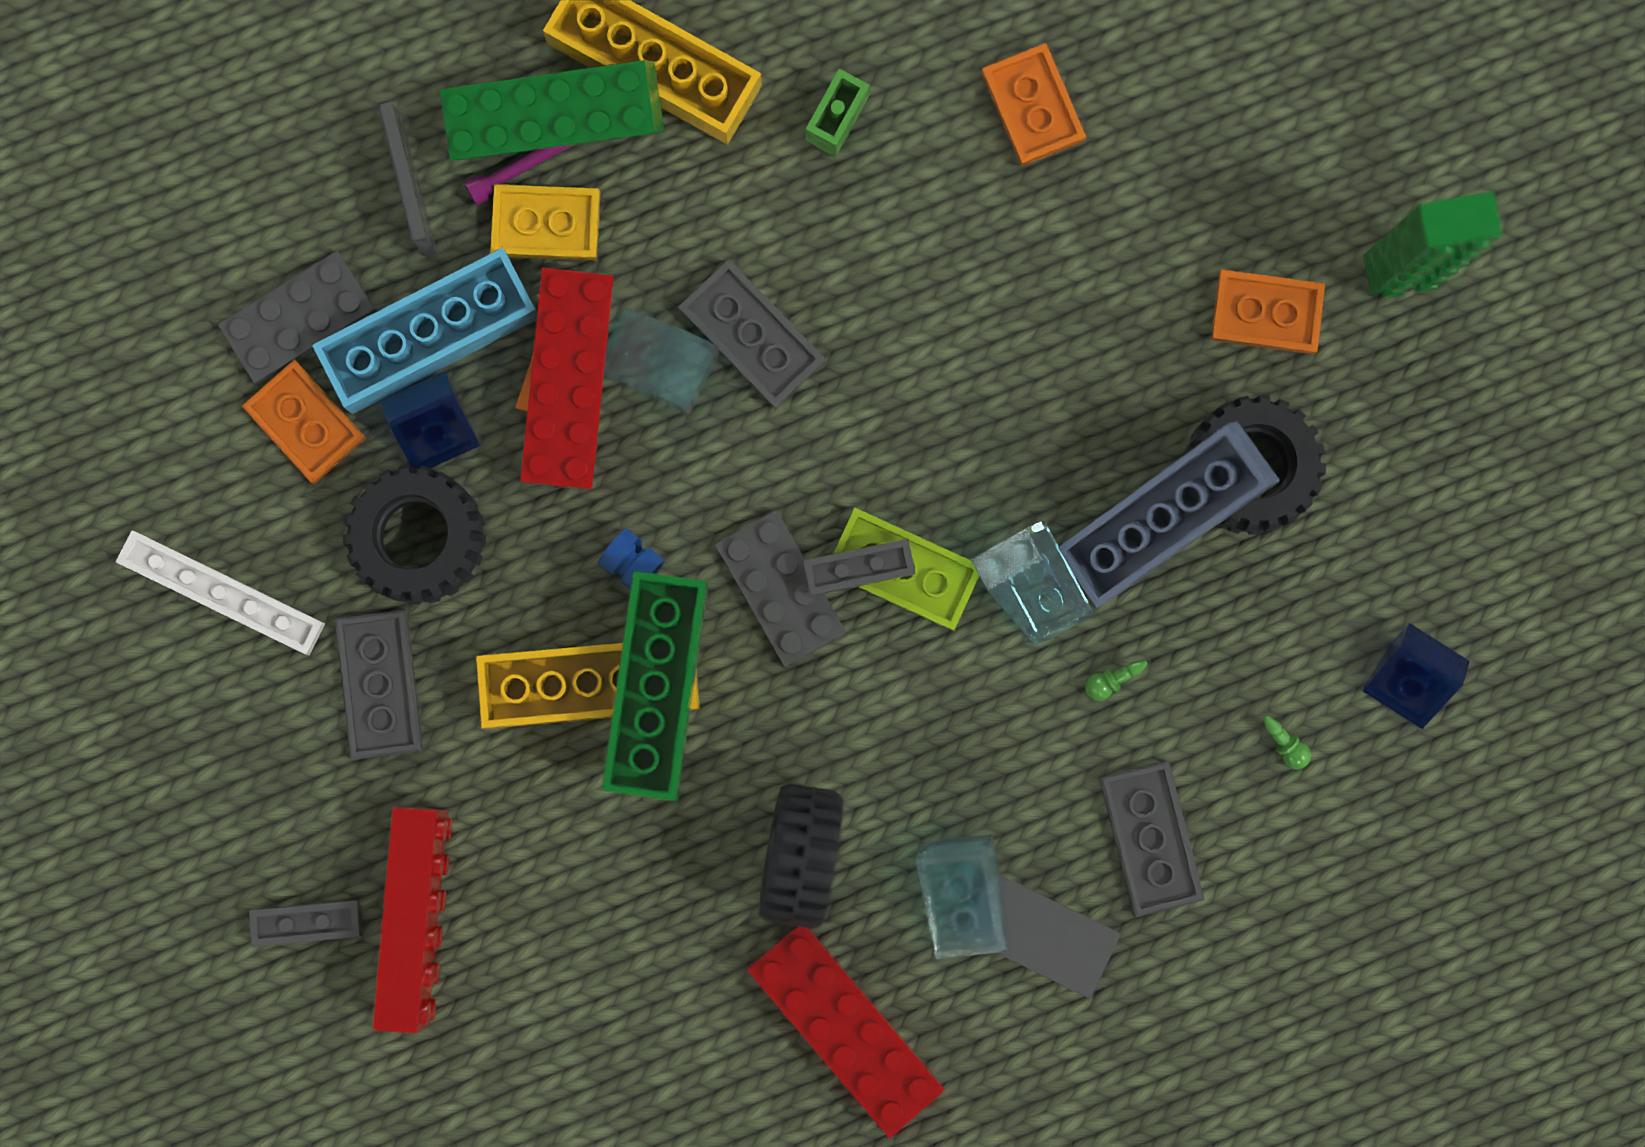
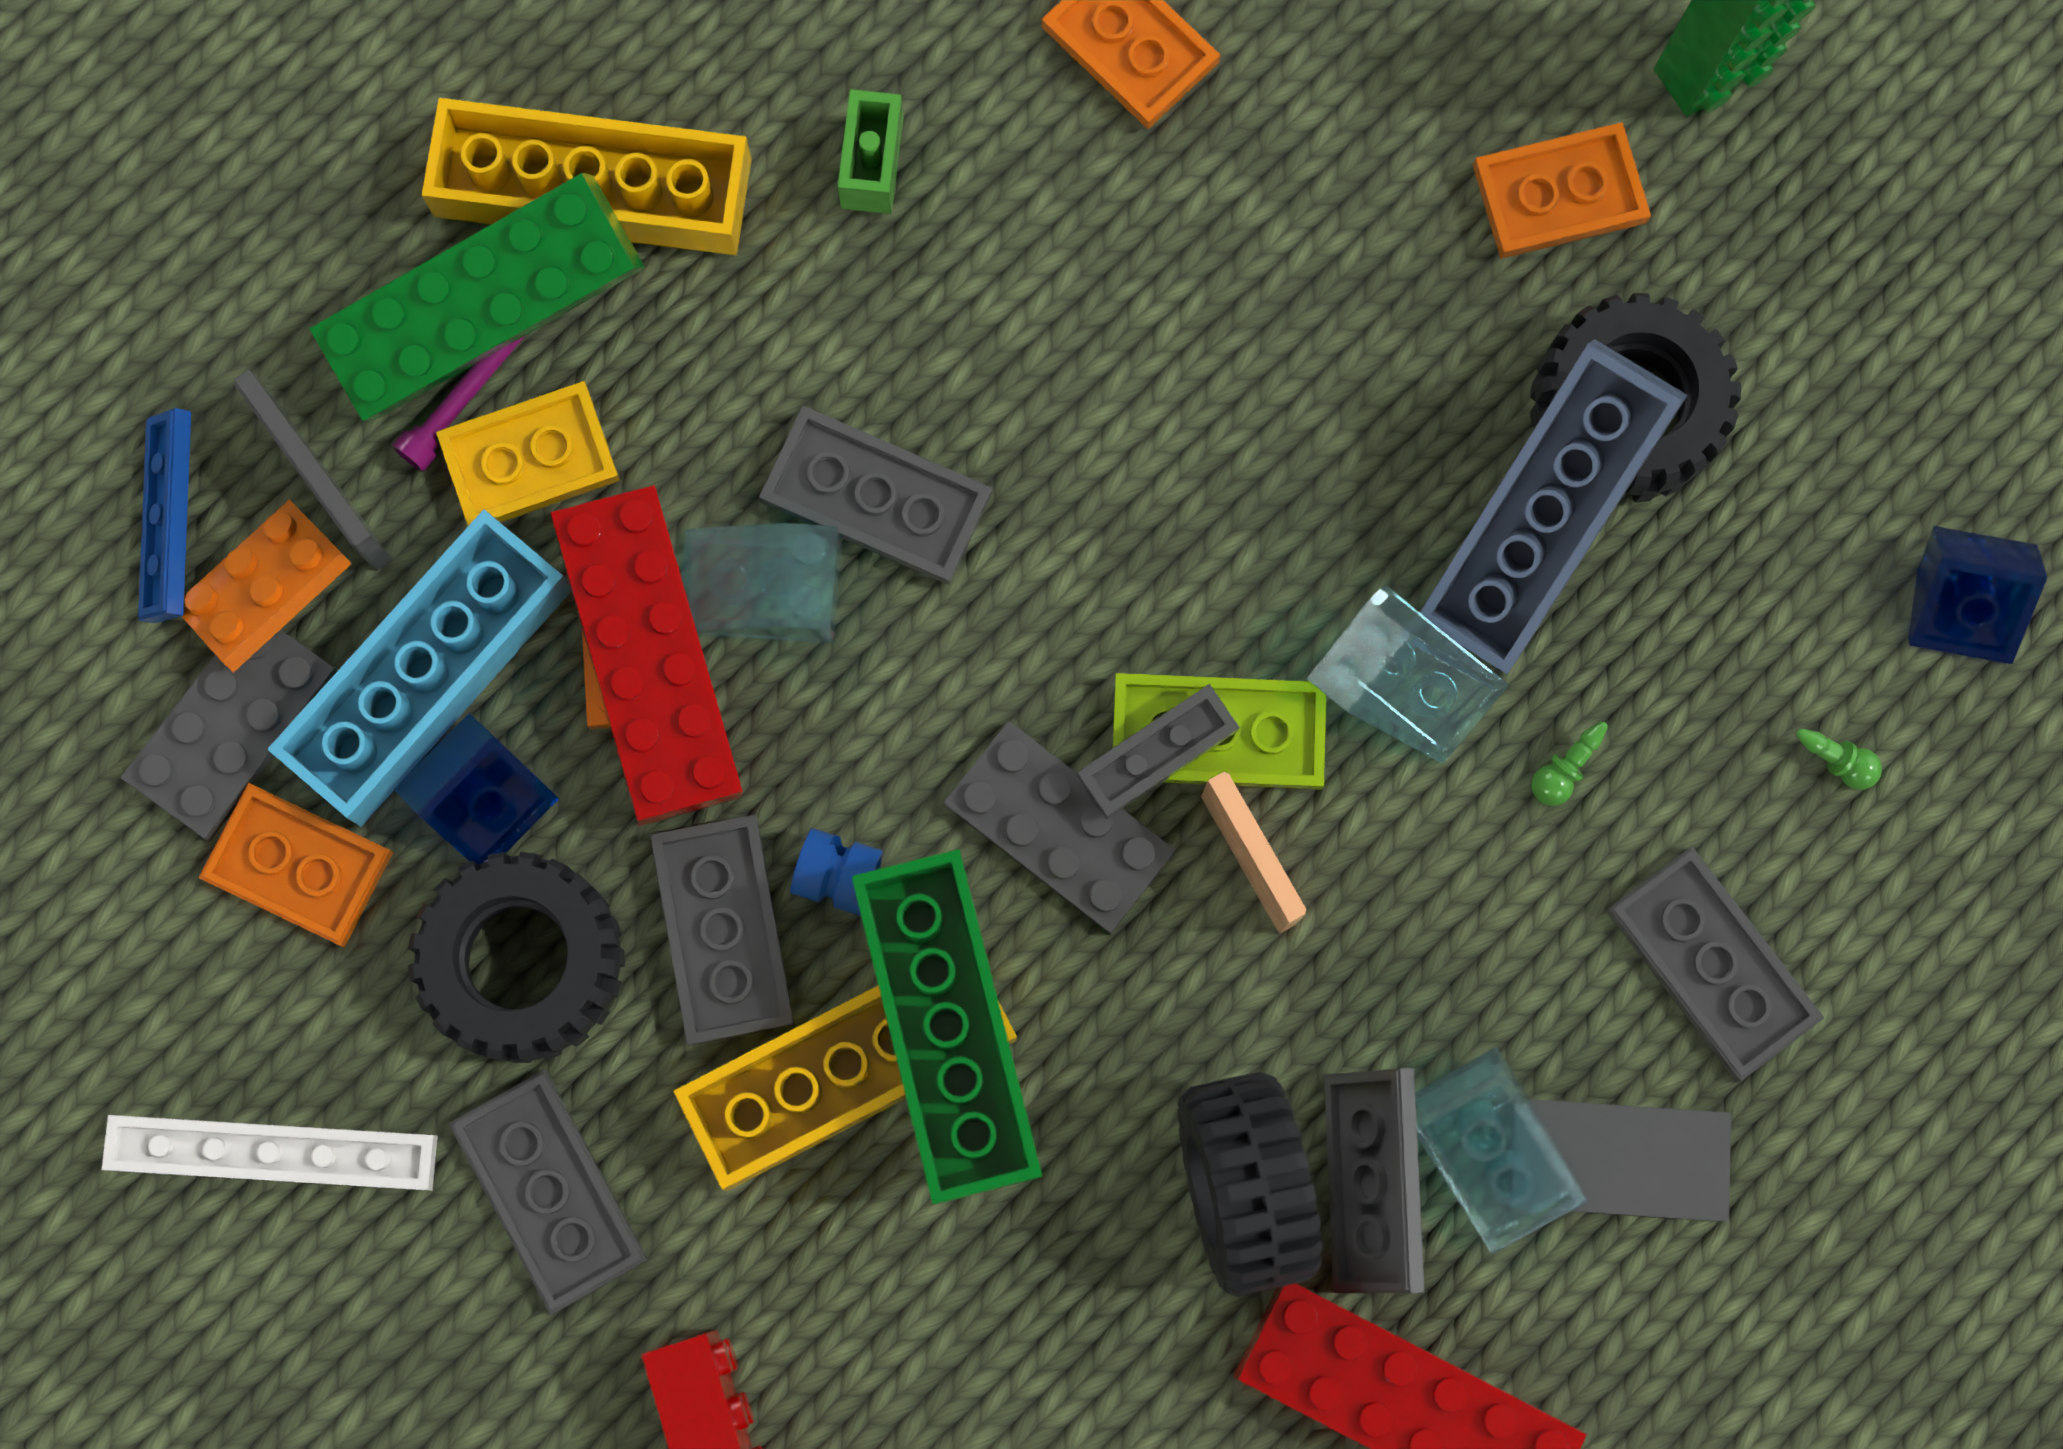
camera: 20 degrees left, 5 degrees down
(306, 170) = (164, 516): none -> blue tile
(349, 239) = (262, 585): none -> orange plate
(547, 568) = (722, 930): none -> dark grey plate
(880, 886) = (1374, 1182): none -> dark grey tile
(891, 654) = (1253, 852): none -> light nougat tile

